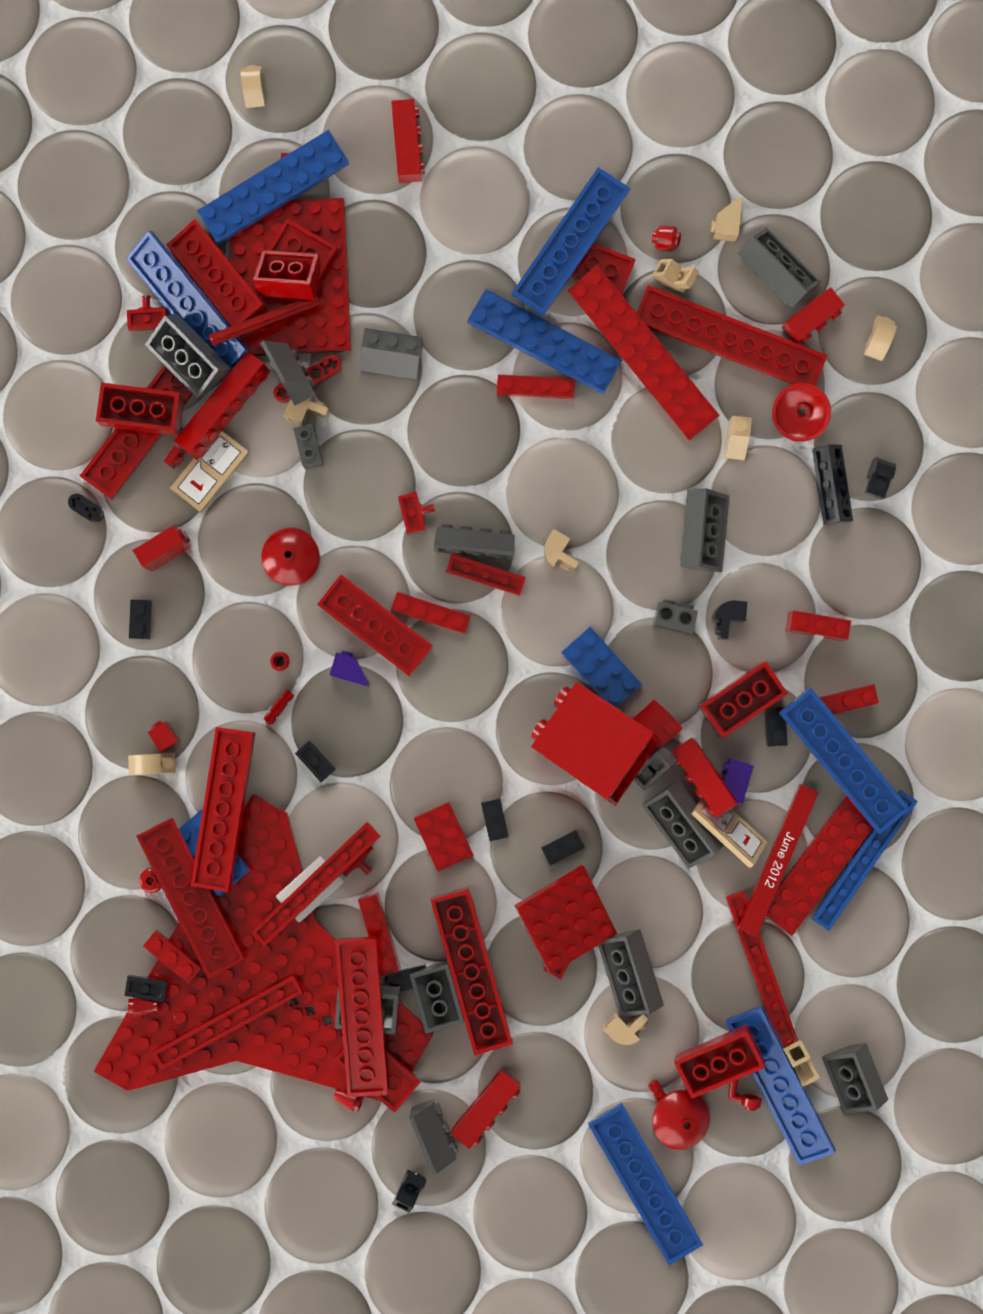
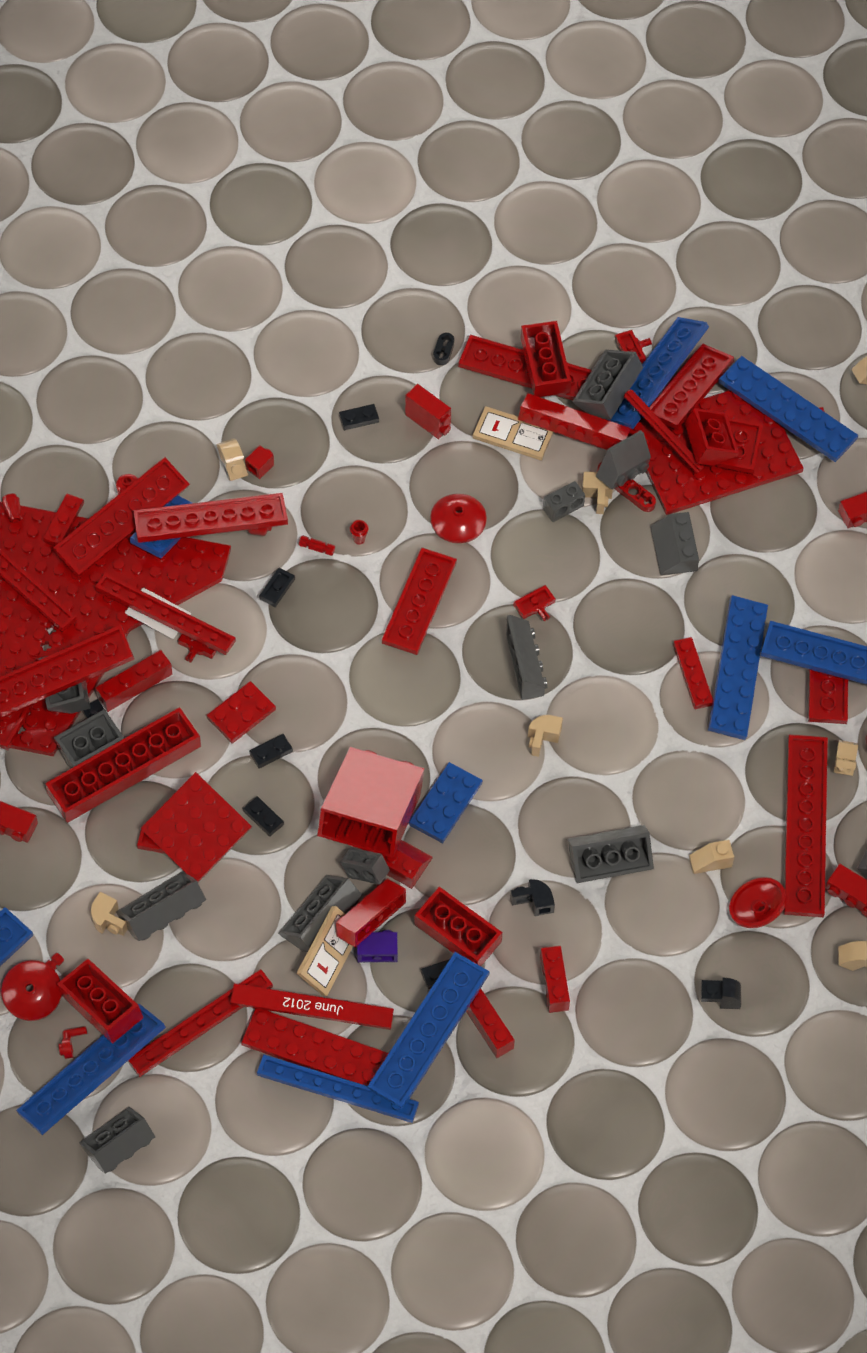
camera: 75 degrees right, 25 degrees down
(146, 988) = (29, 506): black plate -> none
(174, 457) = (513, 401): red plate -> none
(348, 669) = (371, 589): dark purple slope -> none
(430, 612) = (447, 644): red plate -> none
(485, 575) = (499, 678): red plate -> none
(643, 352) = (760, 752): red plate -> none
(674, 622) = (513, 850): dark grey brick -> none
(801, 1062) = (124, 1077): tan brick -> none
(830, 484) = (697, 951): black fence -> none

